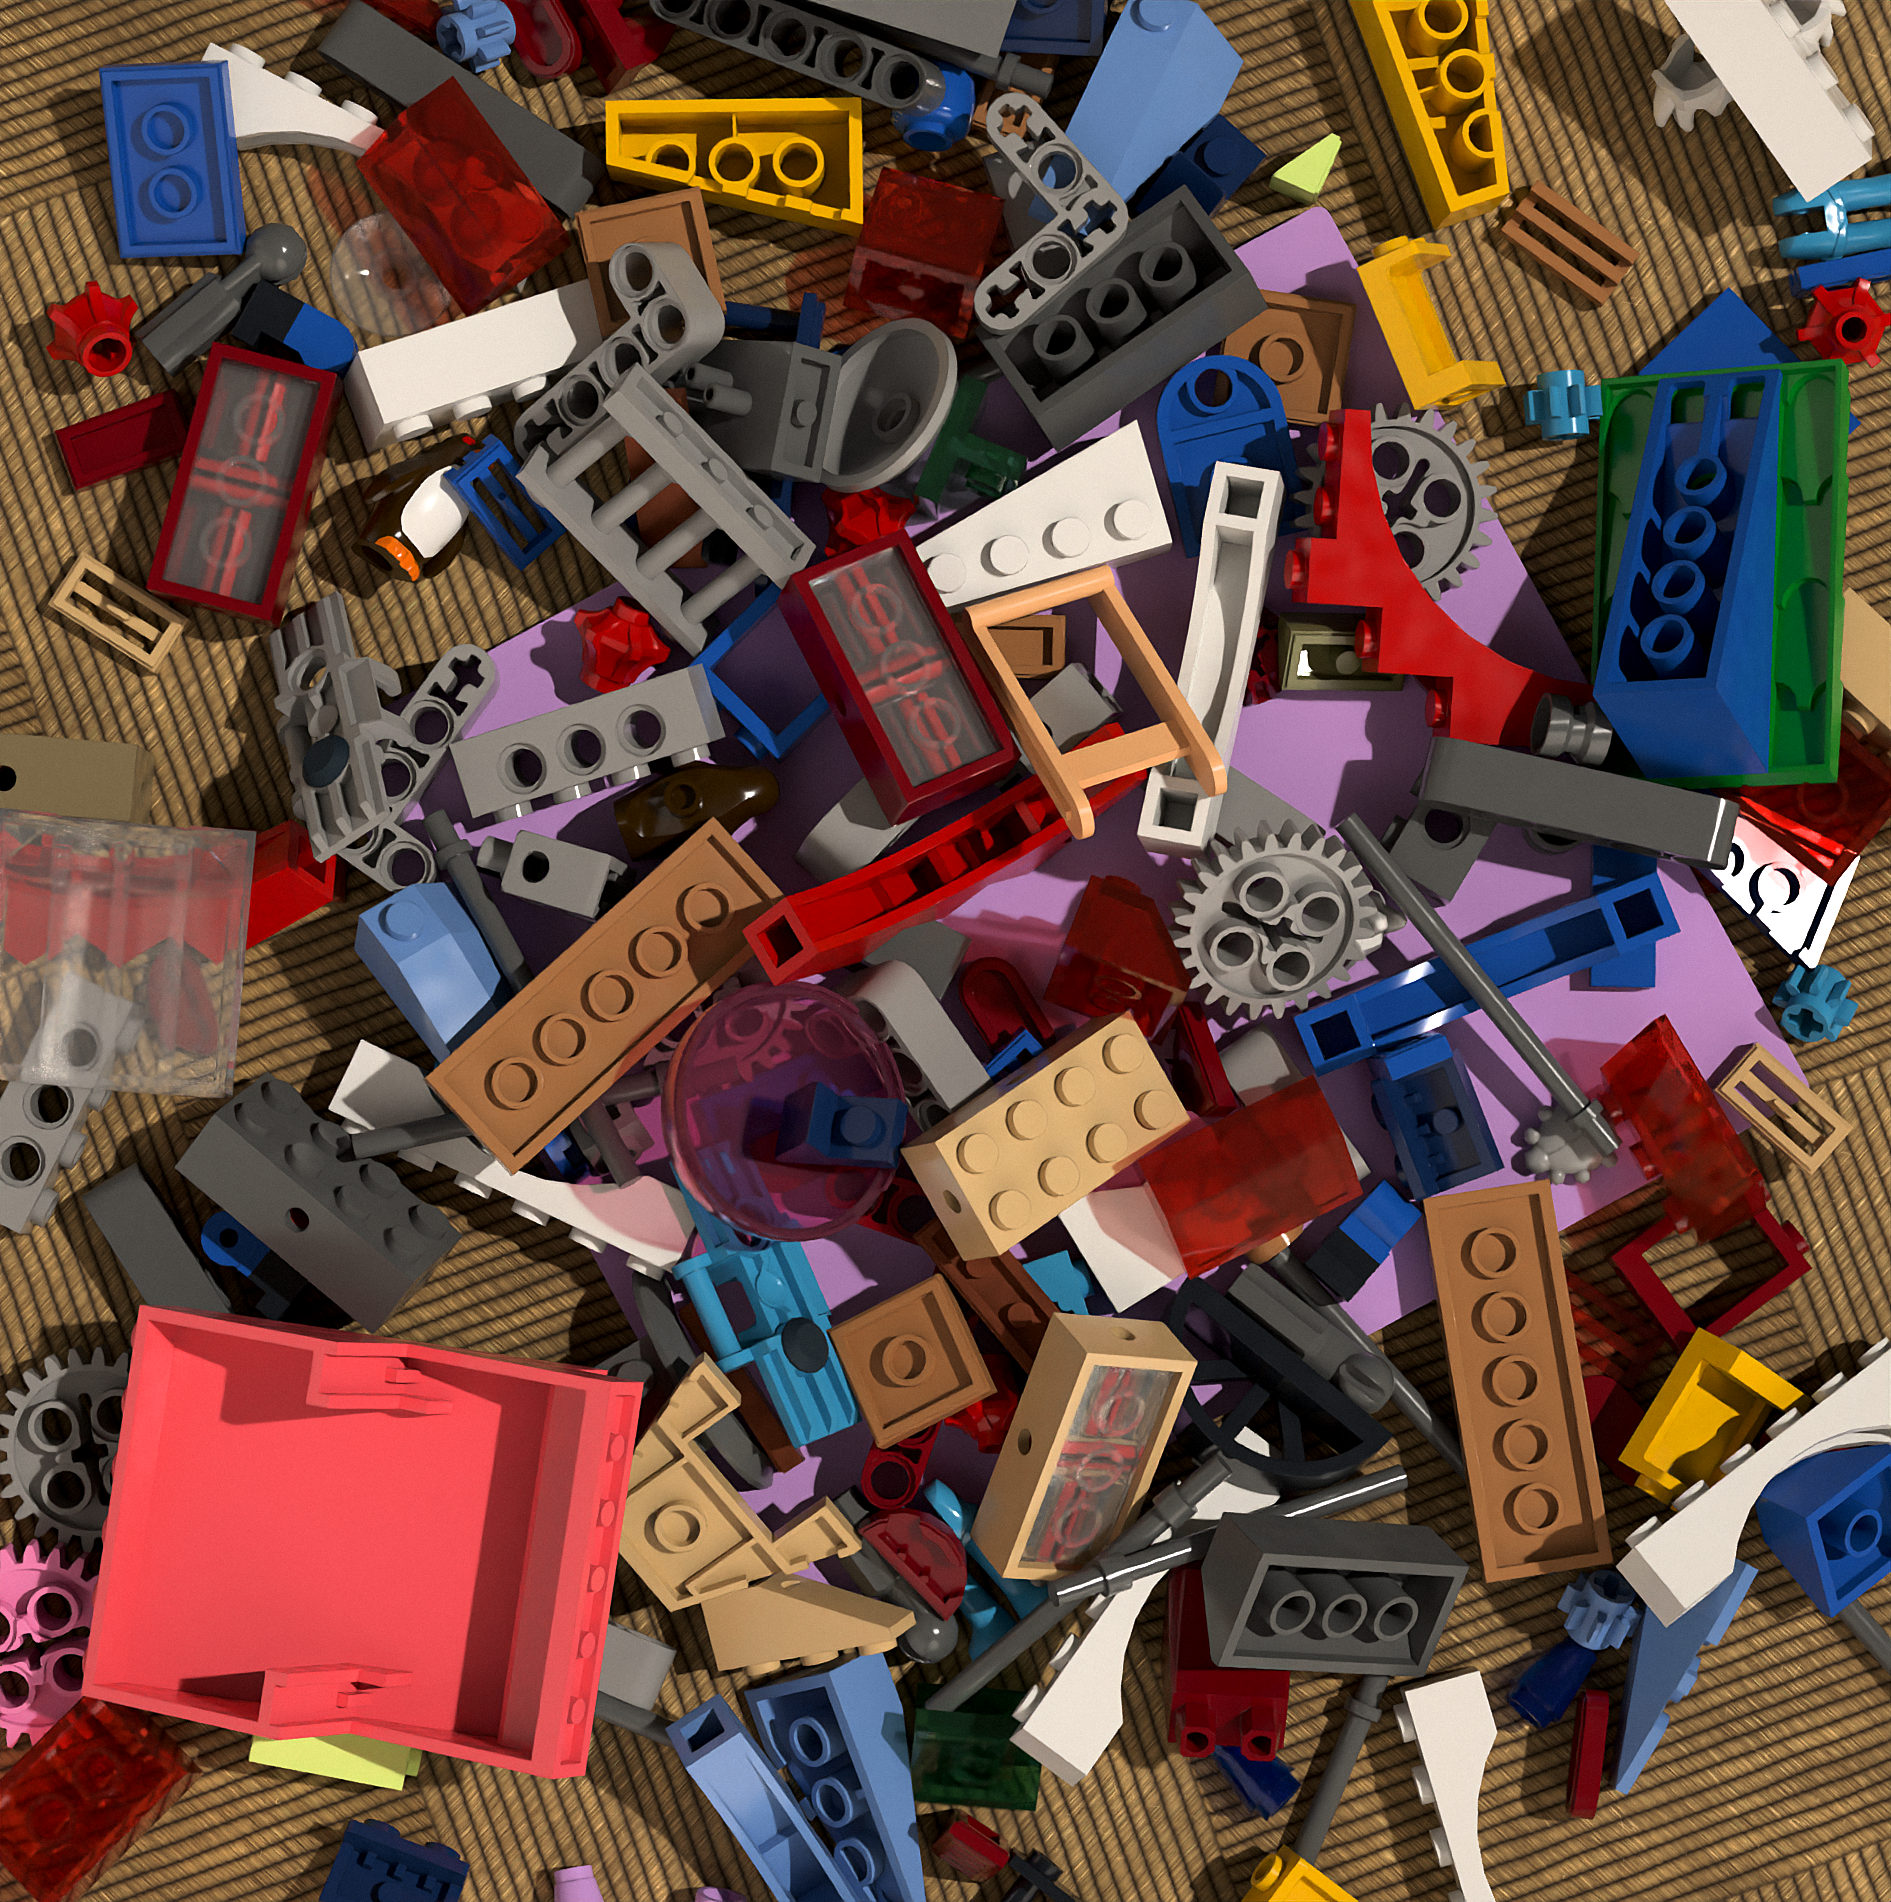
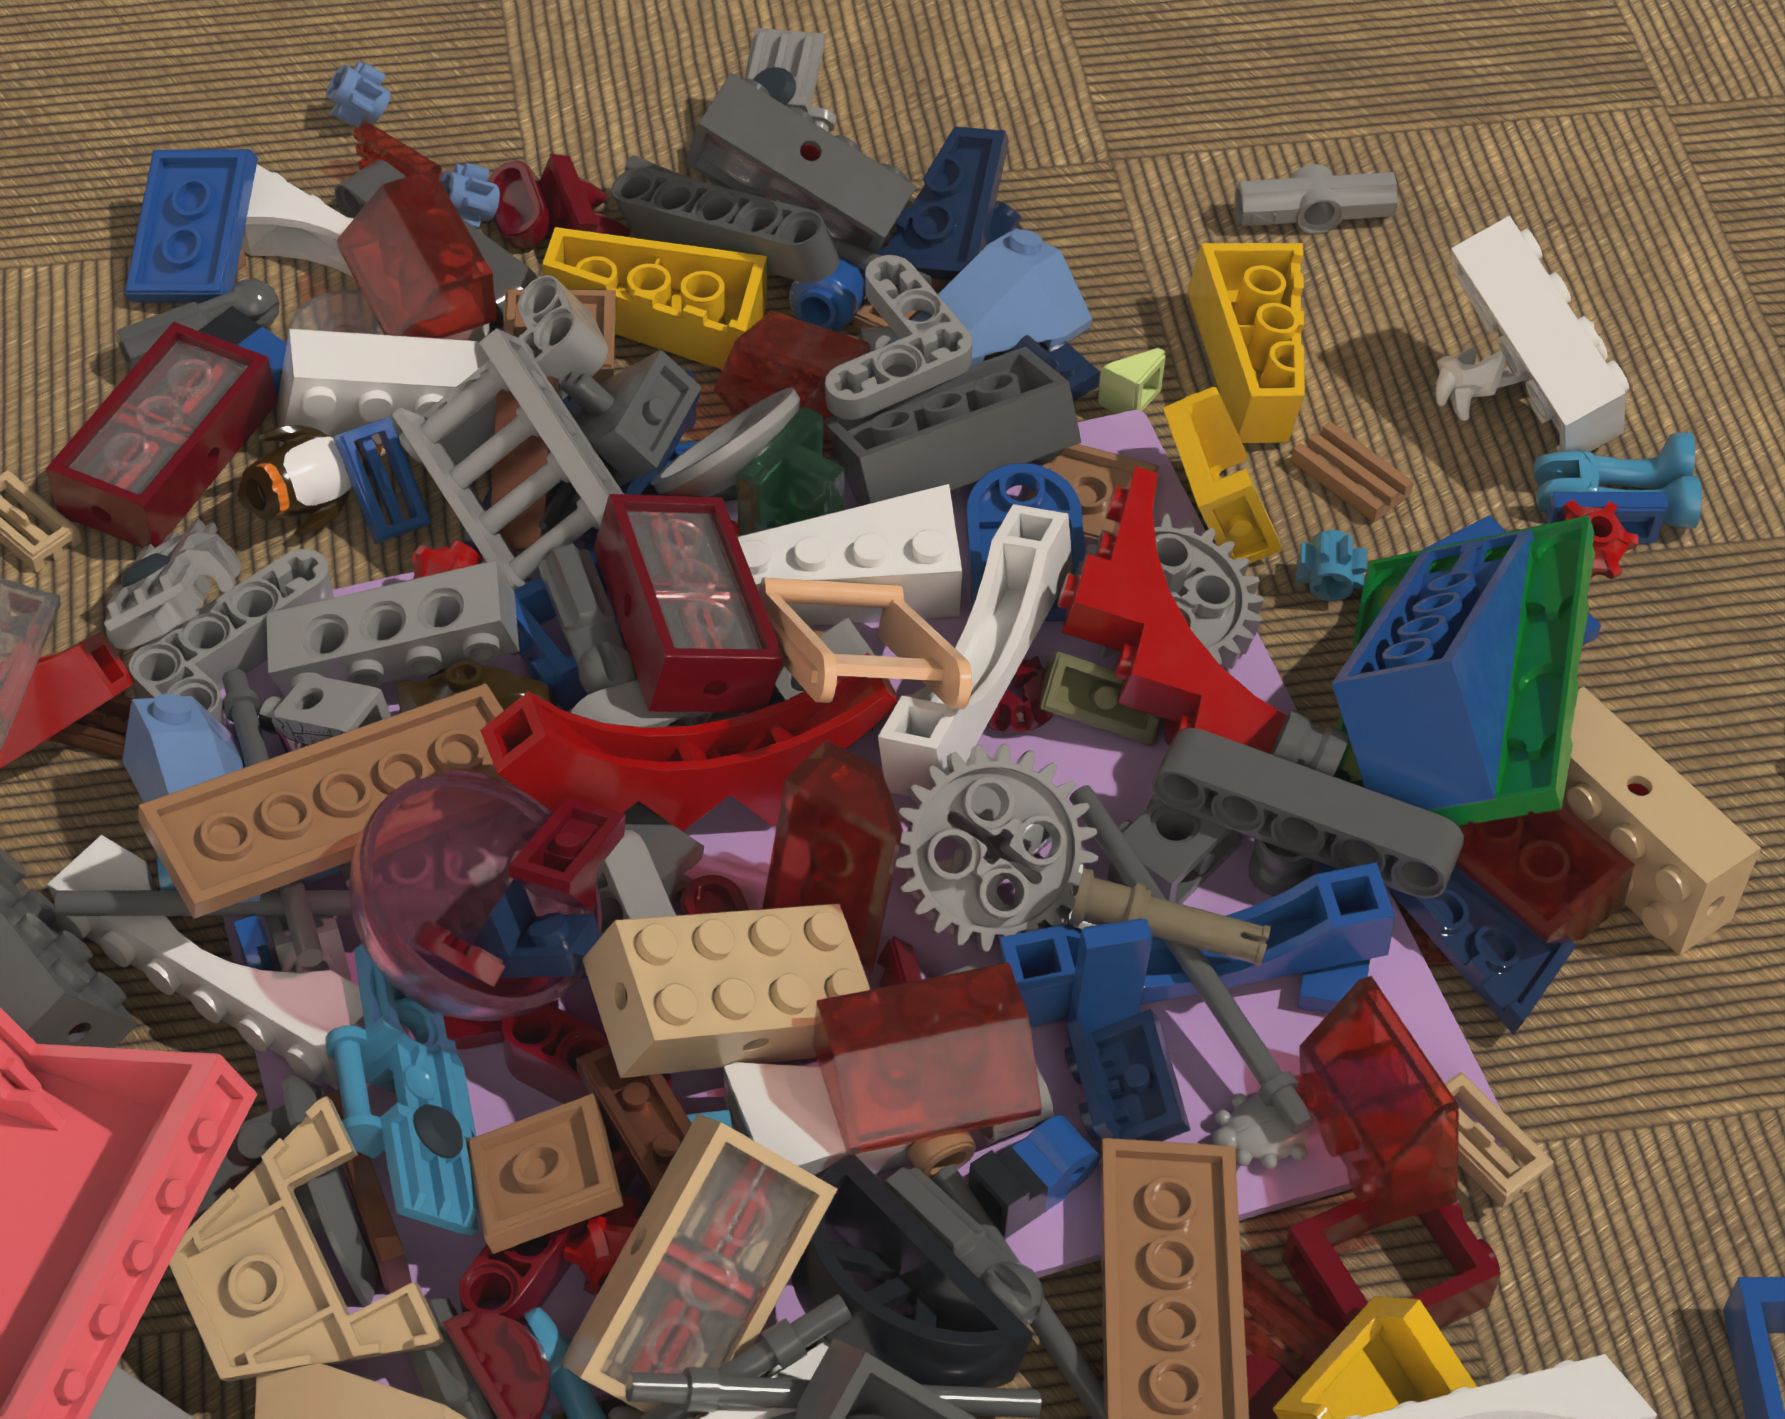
camera: 10 degrees right, 35 degrees down
(94, 331) = (101, 319): red rock -> none
(124, 440) = (60, 410): dark red tile -> none
(782, 1183) = (459, 952): none -> dark red tile
(796, 707) = (586, 618): none -> dark grey piece
(862, 1047) = (567, 852): none -> dark red slope
(1426, 968) = (1110, 902): none -> dark tan pin
(1815, 1003) = (1510, 1064): dark azure gear -> none

